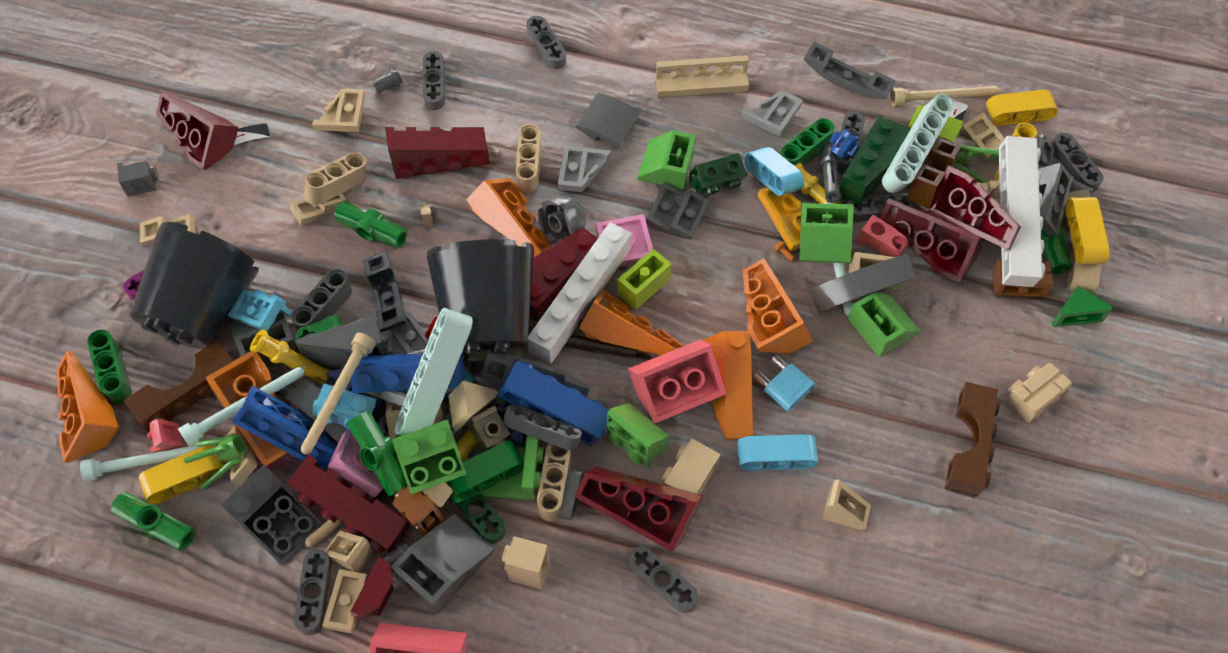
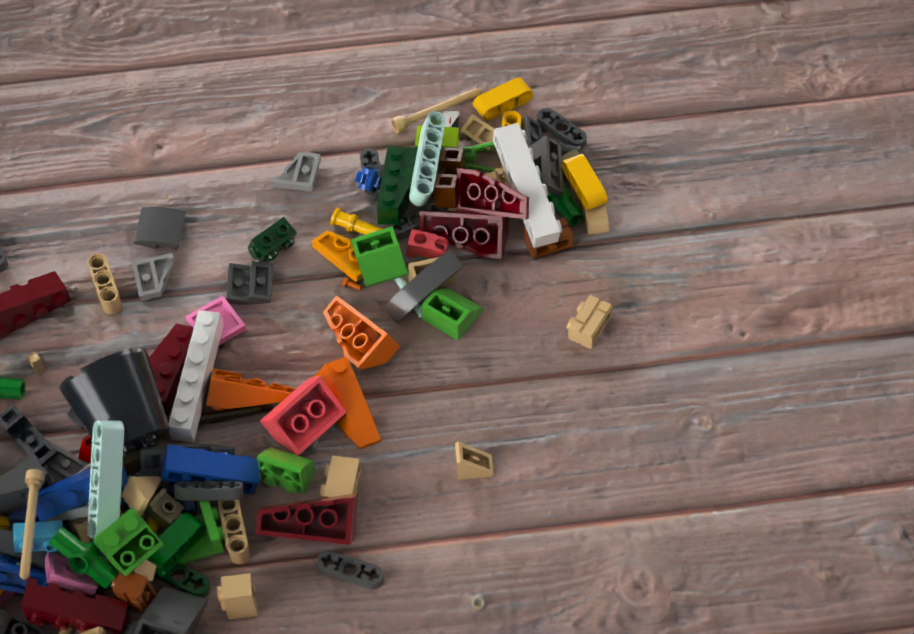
camera: 20 degrees left, 5 degrees down
(503, 208) = (100, 332): orange wedge -> none
(546, 50) = (80, 186): dark grey beam -> none
(561, 217) = (153, 322): dark grey cylinder -> none
(569, 501) = (253, 539): dark grey beam -> none
(644, 279) = (244, 347): lime brick -> none
(668, 159) = (225, 242): bright green slope -> none
(701, 79) = (227, 165): tan fence -> none
(774, 171) = (318, 221): medium azure beam -> none
(777, 452) = (404, 442): medium azure beam -> none
(788, 386) = (394, 388): medium azure piece -> none
(809, 142) = (337, 191): green beam -> none
(829, 166) = (363, 203): dark grey pin -> none
(846, 76) = (349, 121): dark grey slope -> none
(968, 469) = (555, 398): reddish brown arch -> none
(1082, 309) = (602, 245): green slope -> none

